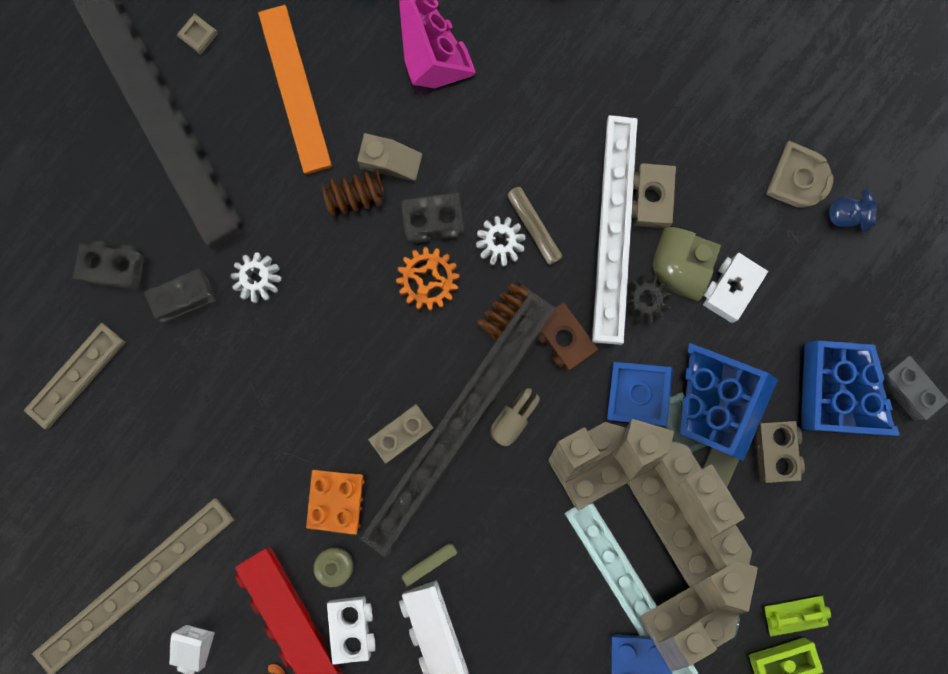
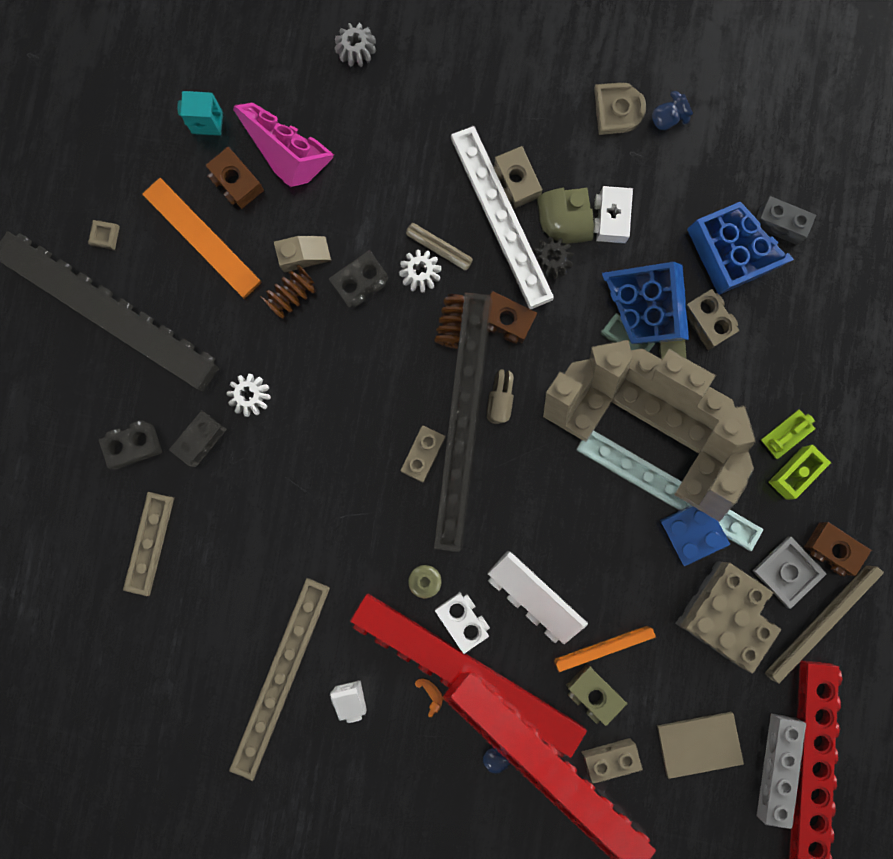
camera: 30 degrees left, 0 degrees up
(335, 502) = (399, 532): orange hinge -> none
(355, 28) = (228, 165): none -> reddish brown brick
(414, 274) = (370, 329): orange gear -> none
(429, 564) = (496, 540): olive tile -> none
(640, 393) = (585, 328): blue plate -> none

